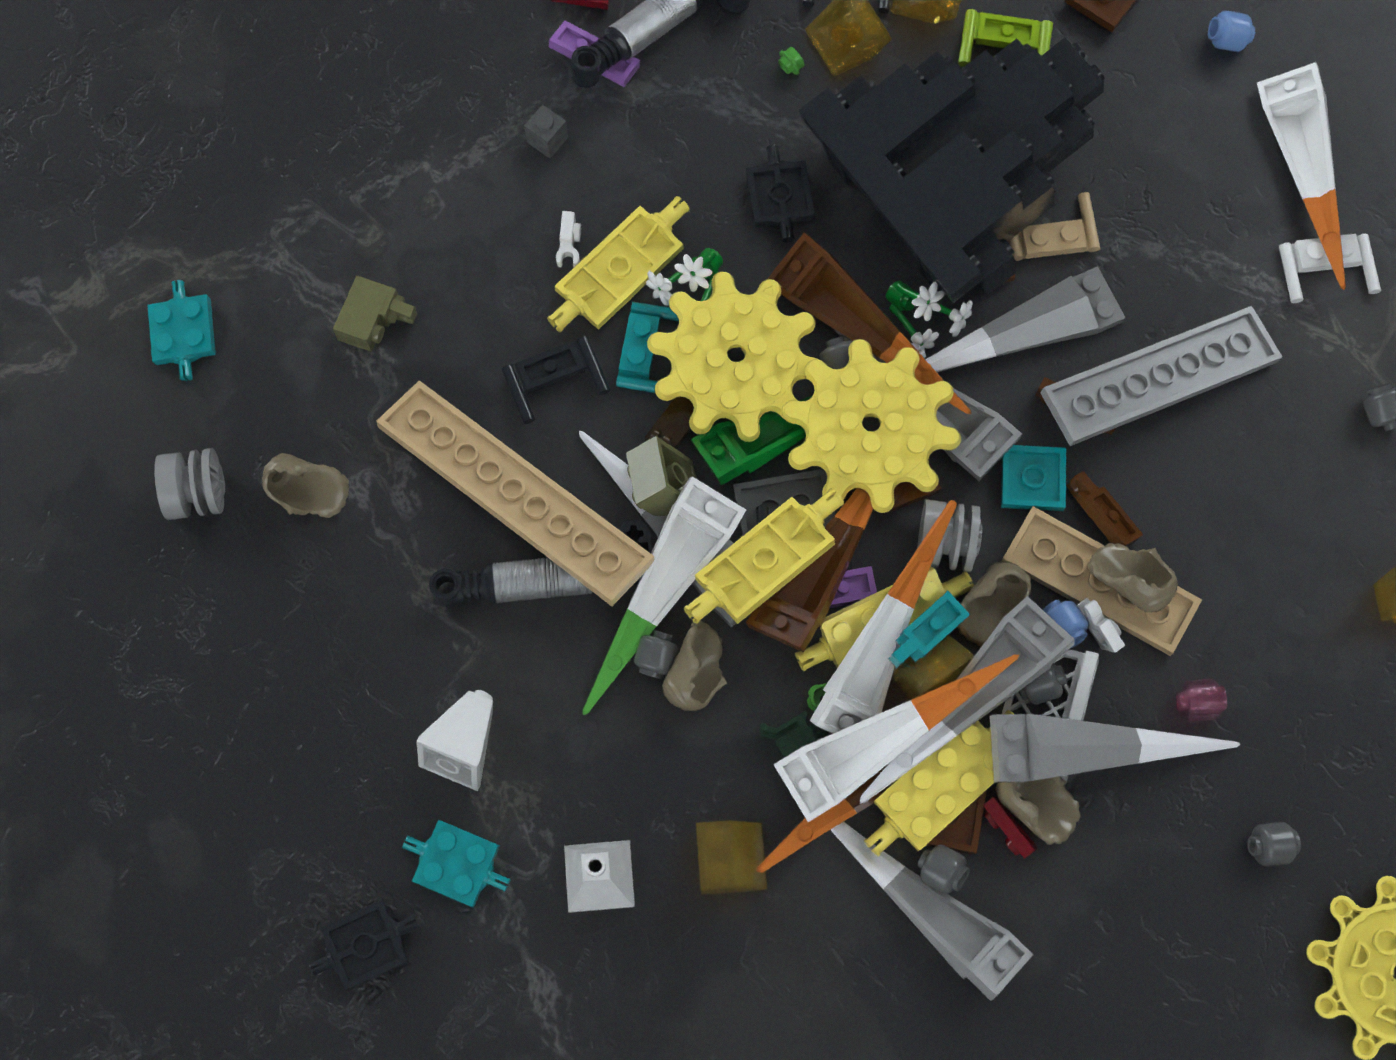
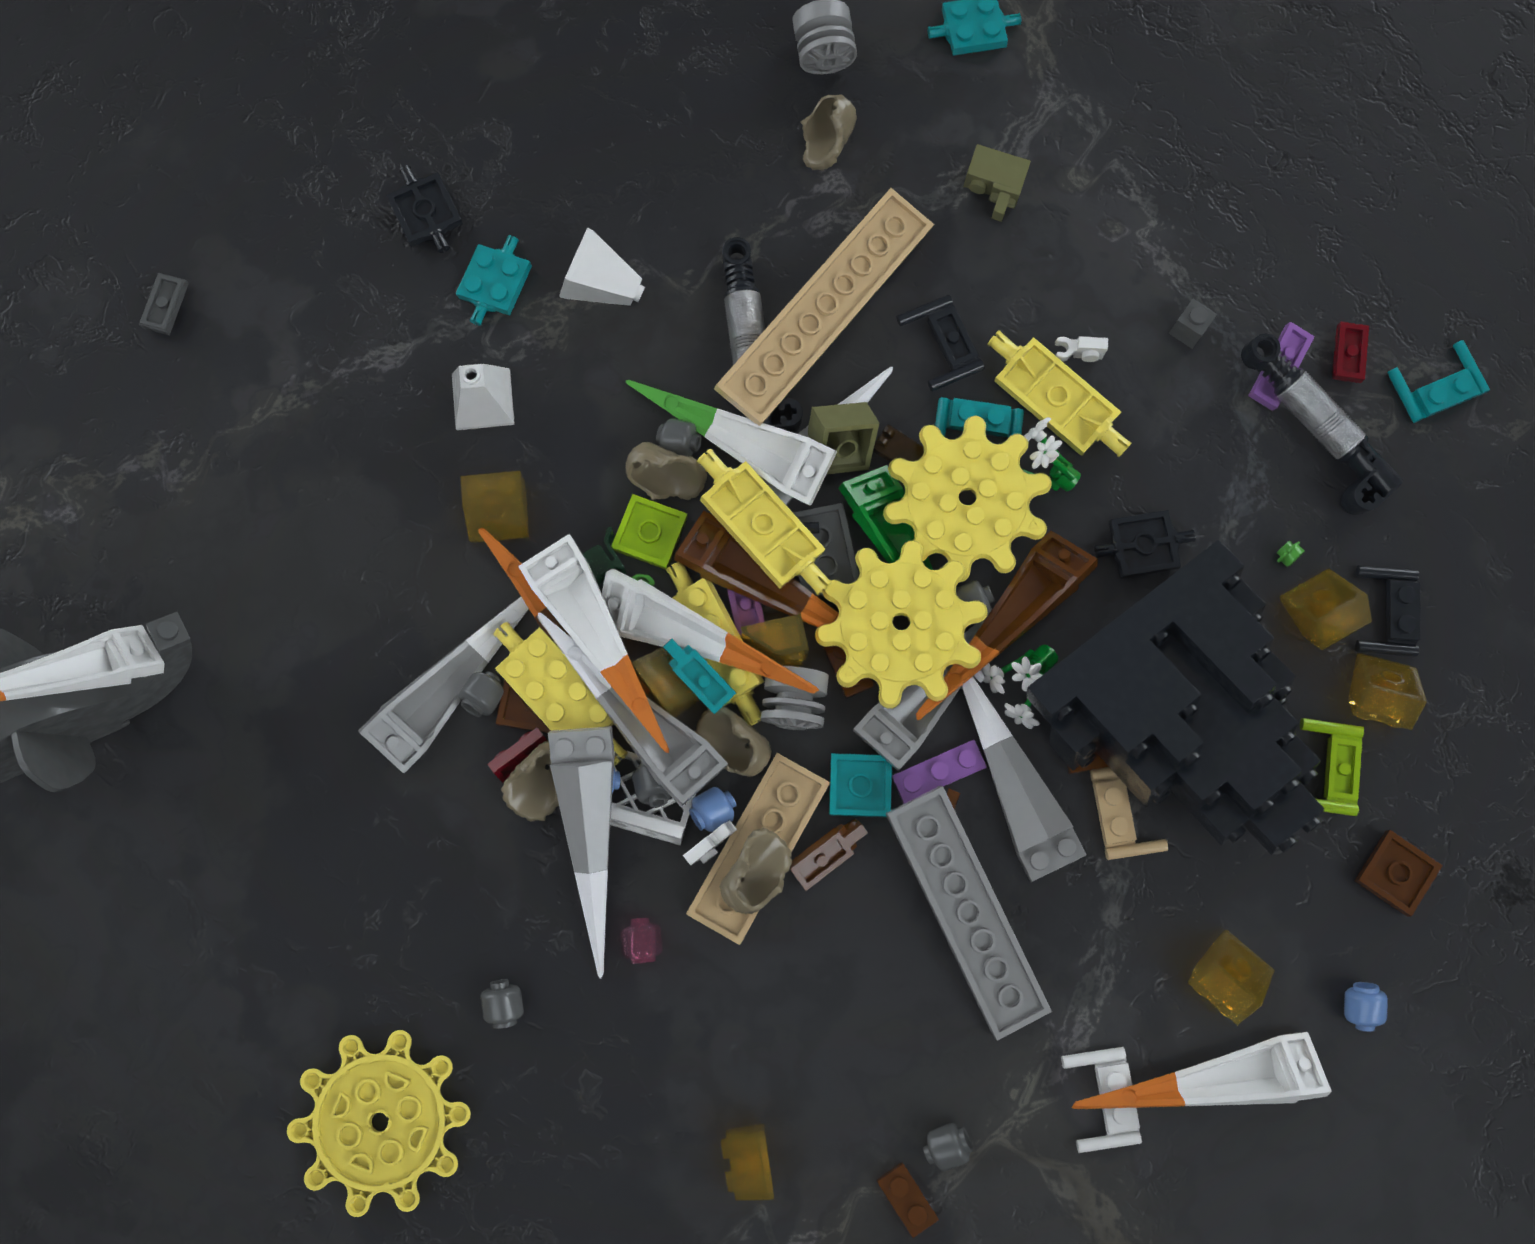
camera: 85 degrees right, 5 degrees up
(760, 688) = (649, 531): none -> lime plate
(887, 546) = (779, 640): none -> clear yellow slope
(1016, 401) = (939, 771): none -> medium lavender plate
(1211, 143) = (1232, 978): none -> clear yellow slope

